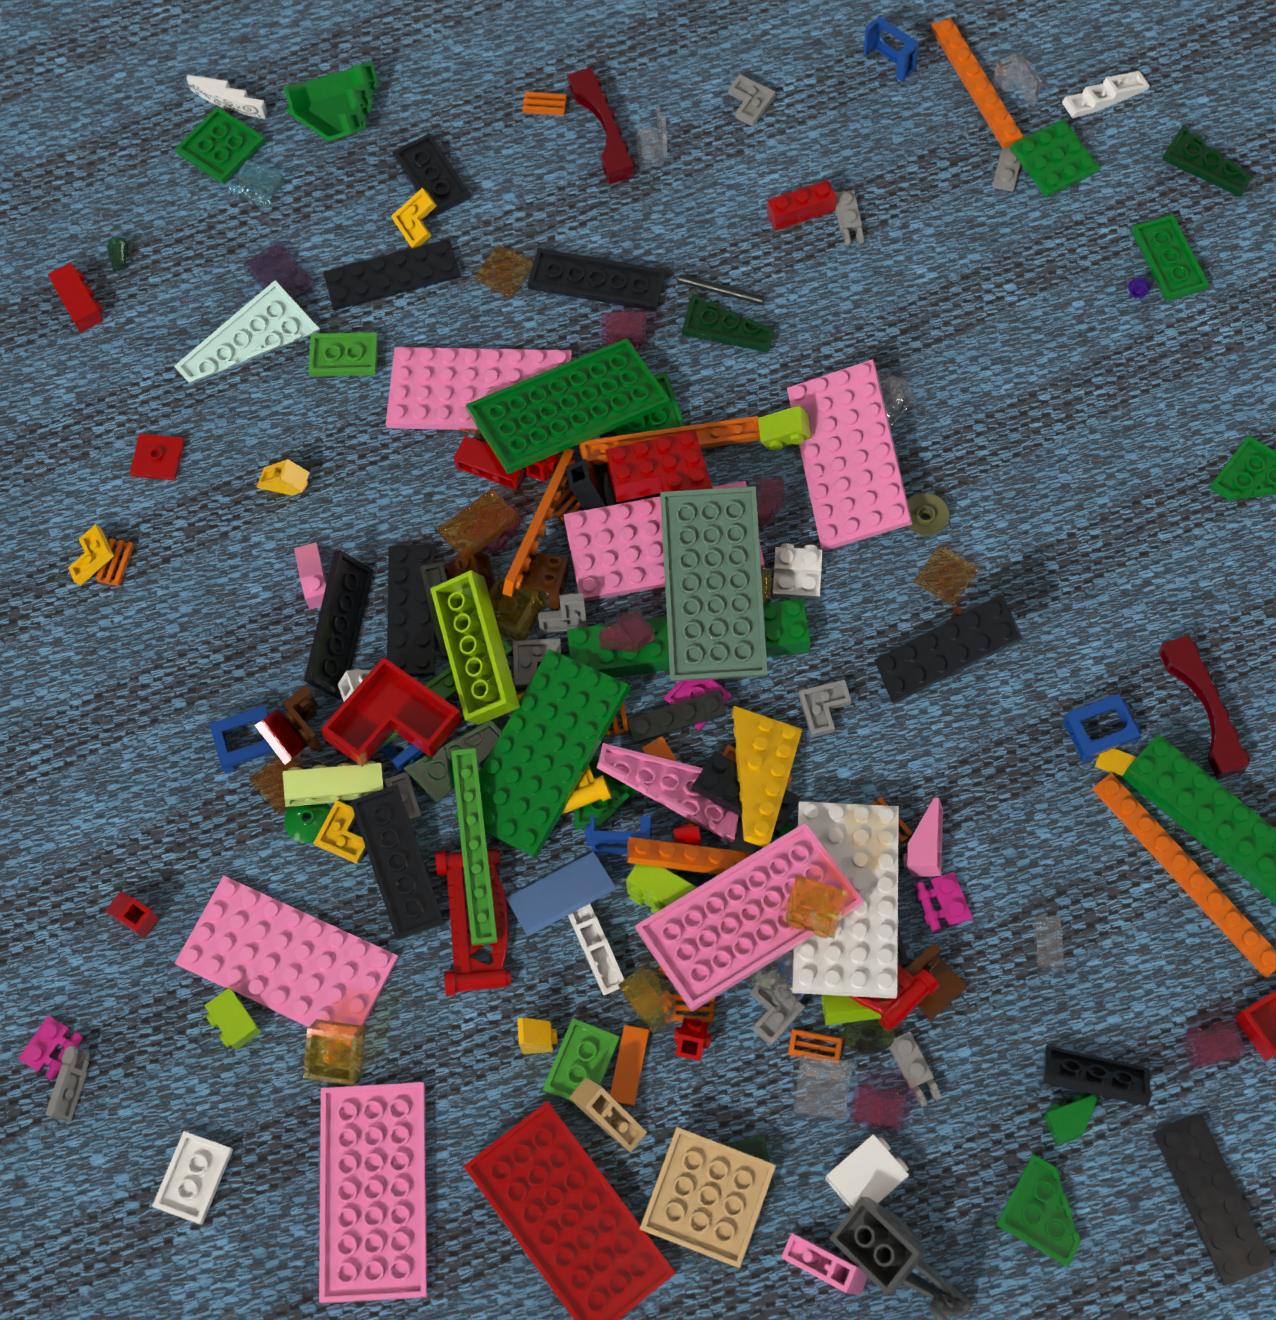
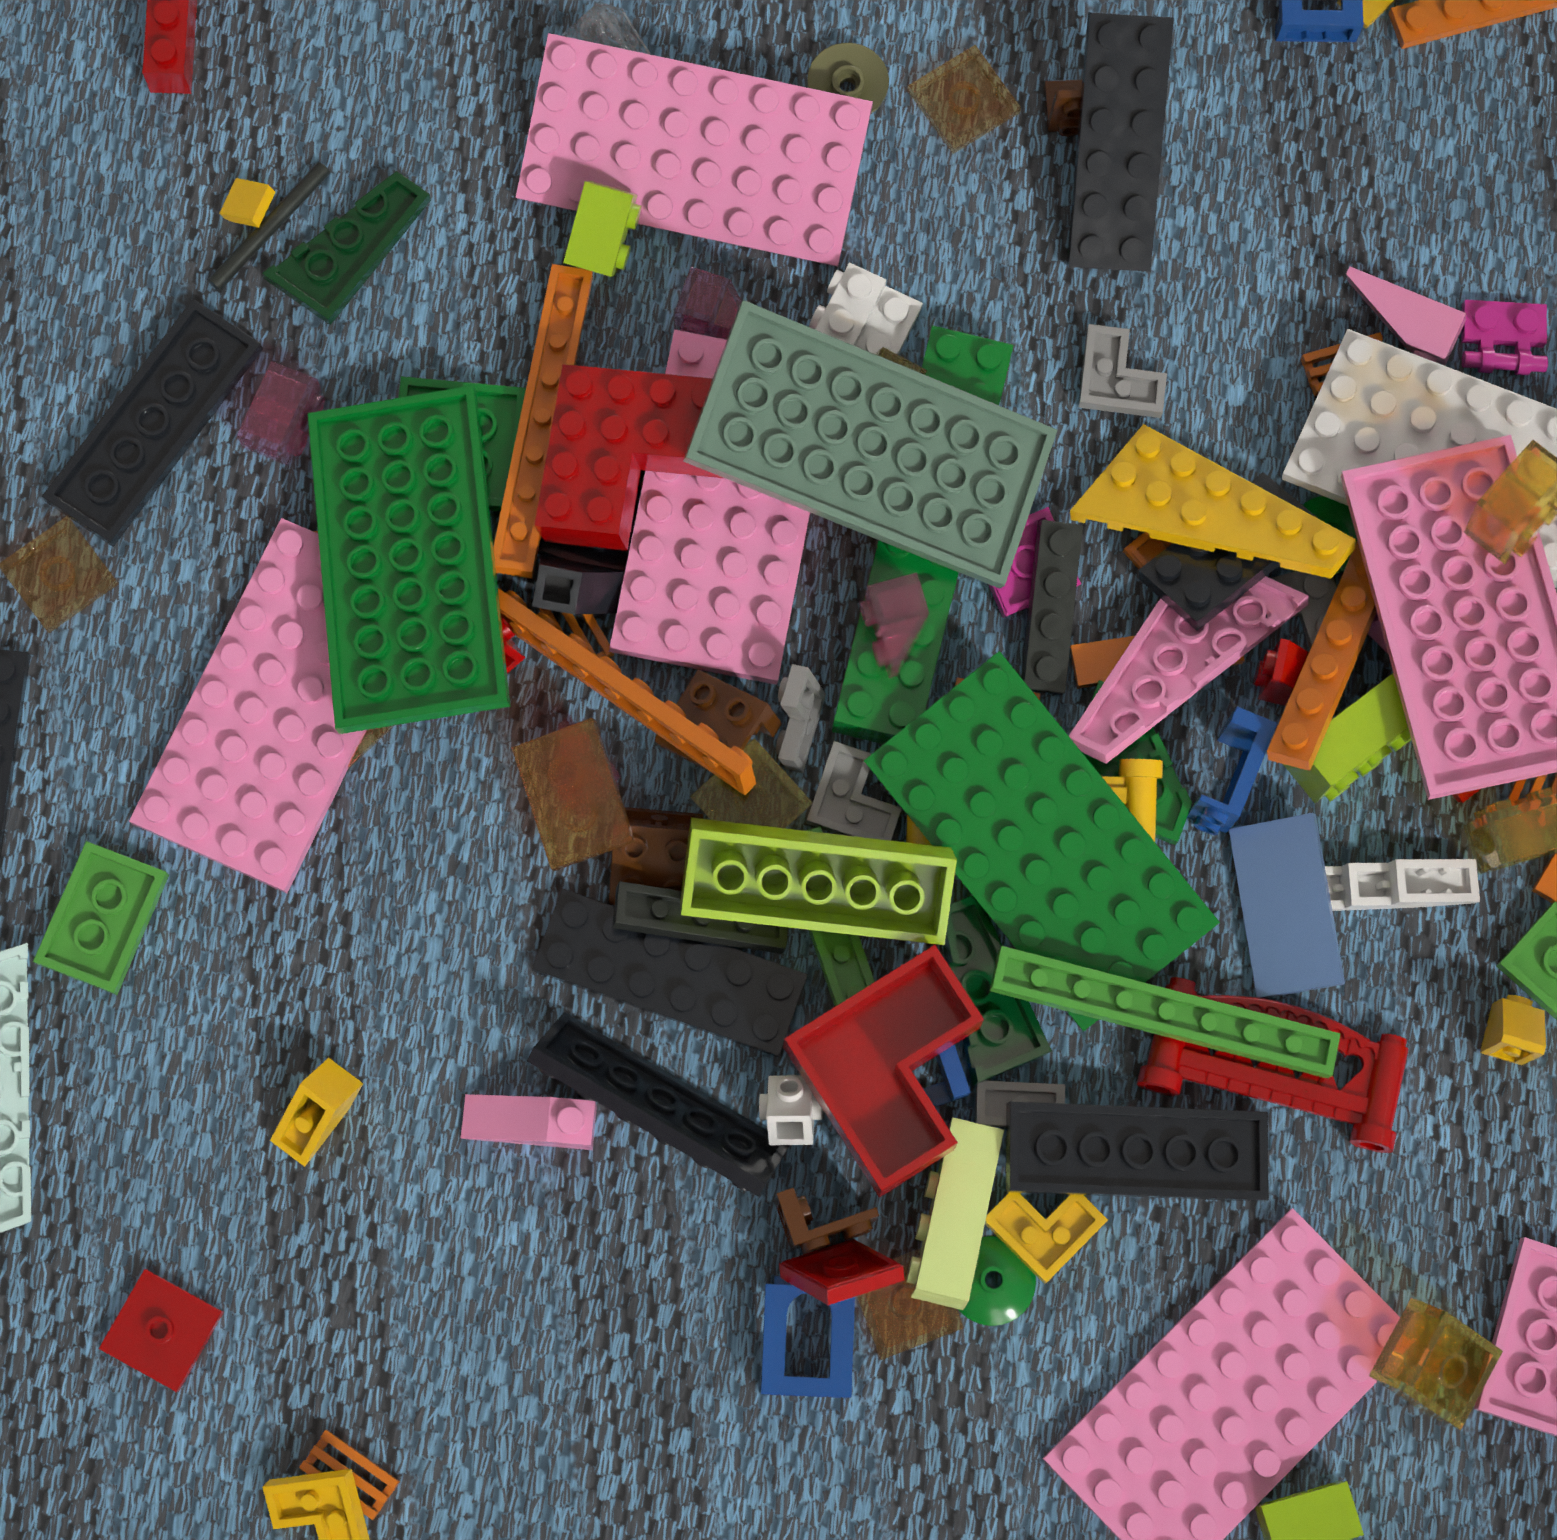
camera: 80 degrees left, 10 degrees up
(479, 459) = (437, 747): red brick -> none
(727, 274) = (247, 202): none -> yellow tile

